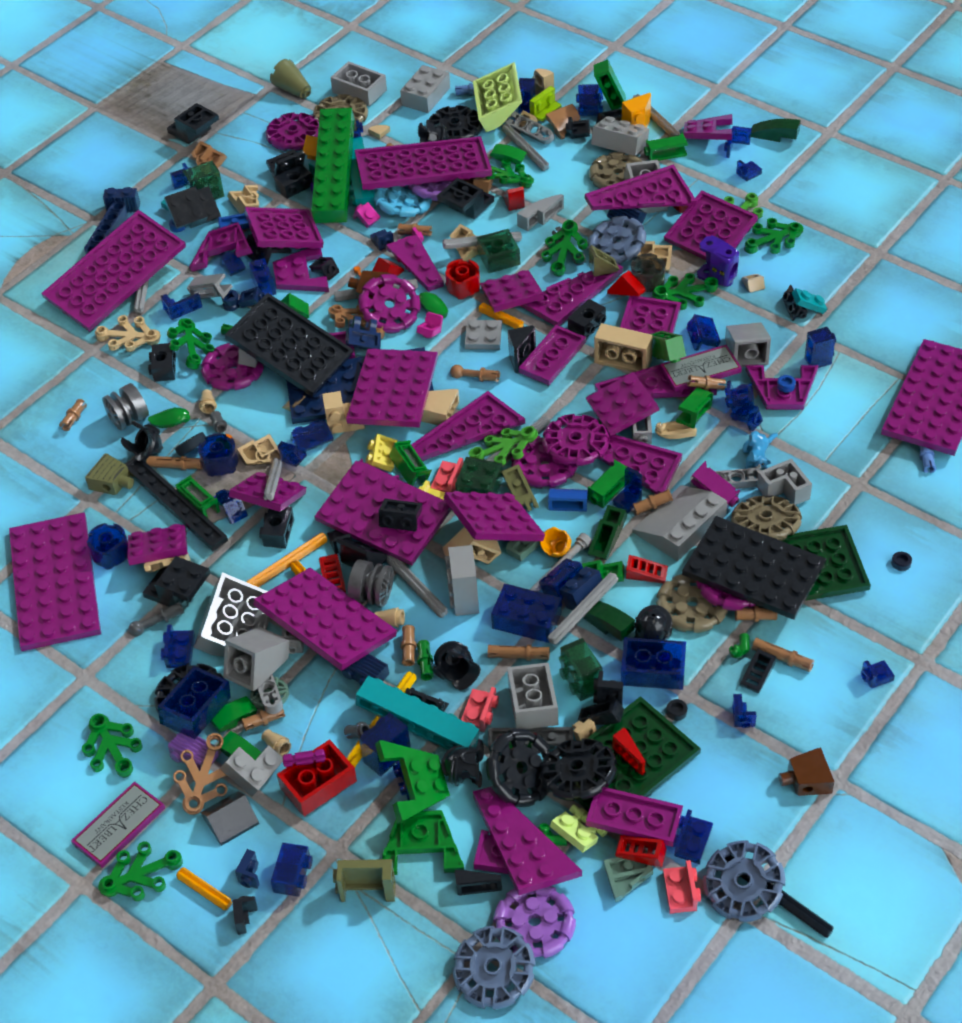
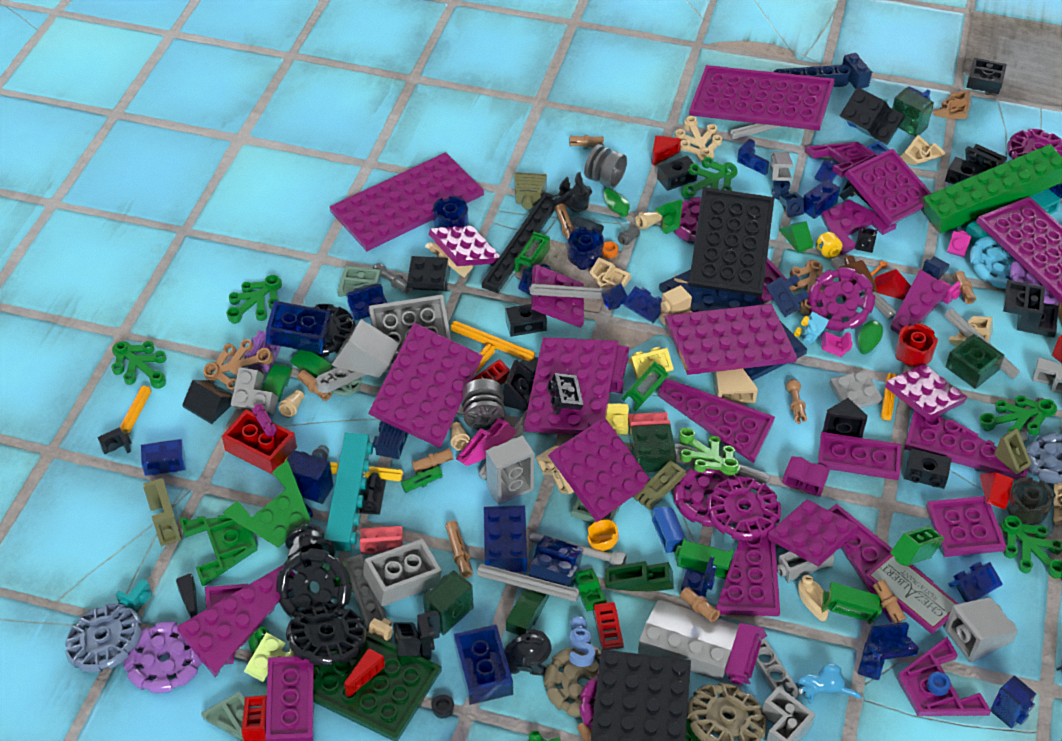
camera: 65 degrees right, 0 degrees up
(118, 824) = (181, 333): light grey tile -> none
(123, 363) = (665, 148): none -> red slope
(142, 647) = (357, 278): none -> sand green wing
(216, 382) = (671, 215): none -> green slope
(246, 870) = (158, 428): dark blue bracket -> none
(318, 292) = (829, 245): none -> yellow head
(406, 334) = (814, 327): none -> medium azure piece
(412, 596) = (483, 440): none -> dark pink slope
(456, 665) = (419, 501): black helmet -> none
(457, 928) = (138, 596): none -> teal bracket
(557, 393) = (805, 476): none -> magenta brick
(622, 348) = (896, 507): tan brick -> none
(656, 589) = (581, 641): none -> medium blue piece

